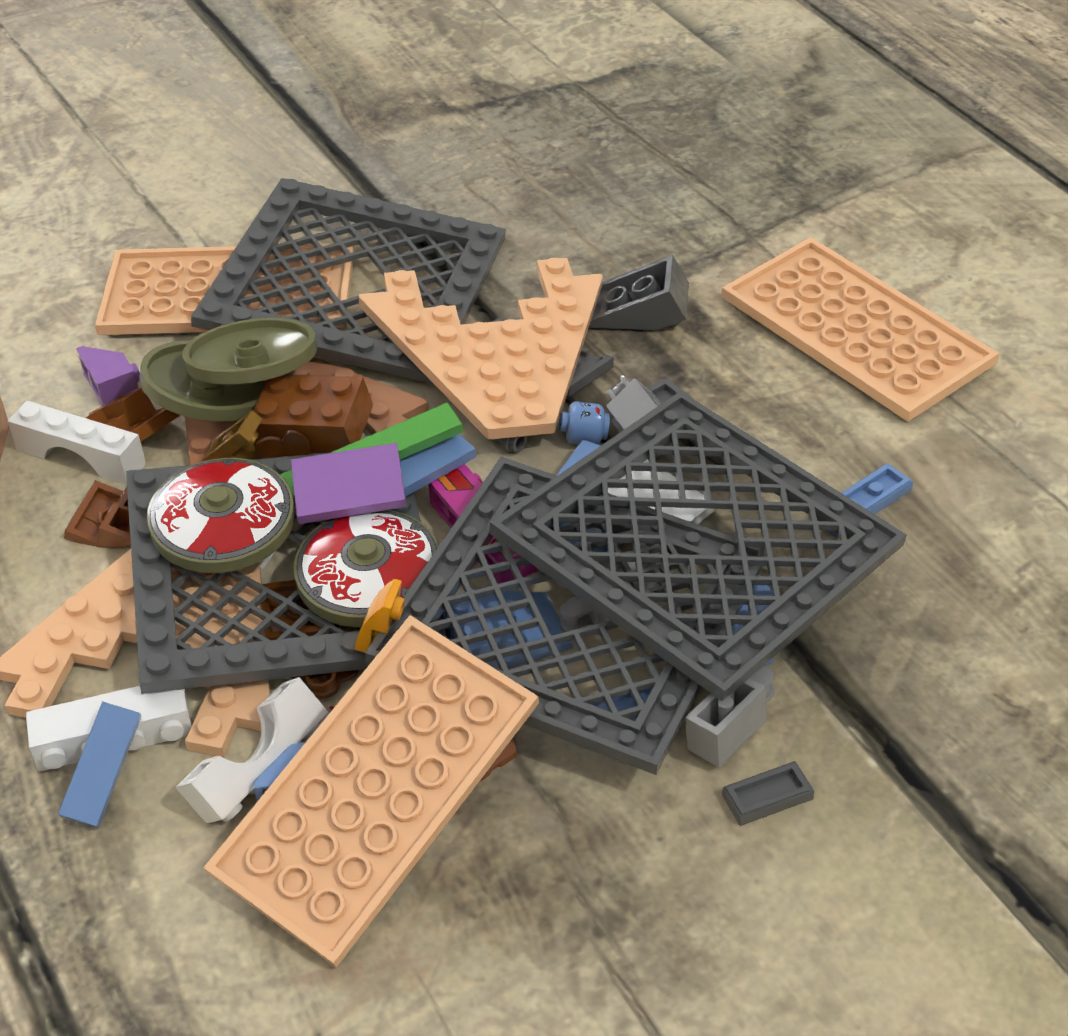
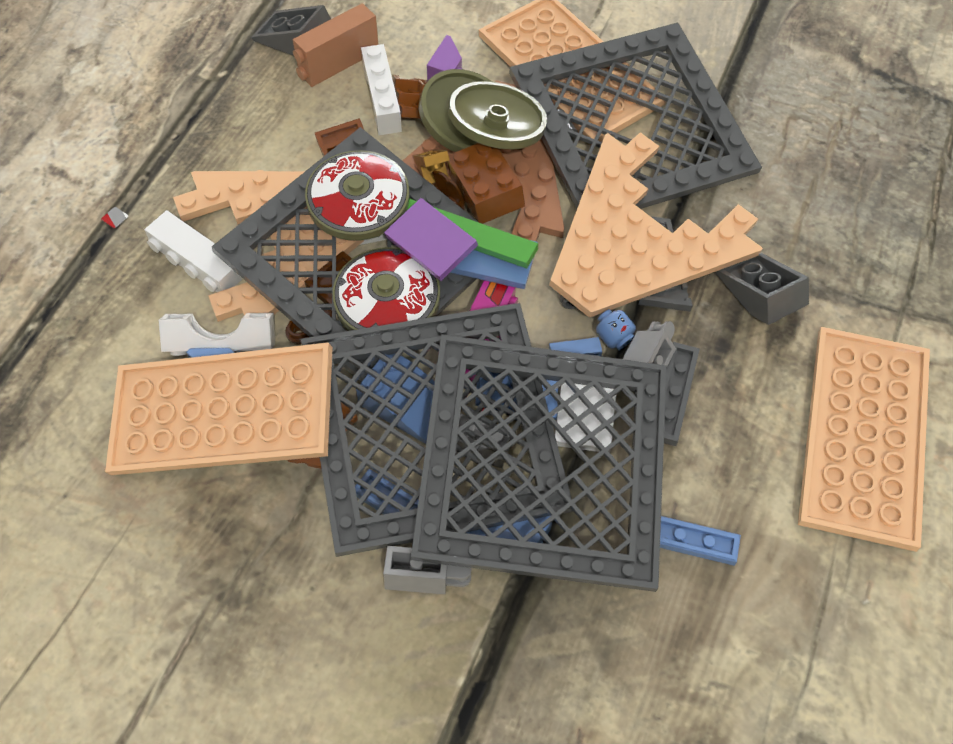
camera: 50 degrees right, 15 degrees up
(100, 765) = (158, 268): medium blue tile -> none
(383, 609) = (334, 327): light orange slope -> none
(767, 793) = (387, 631): dark grey tile -> none

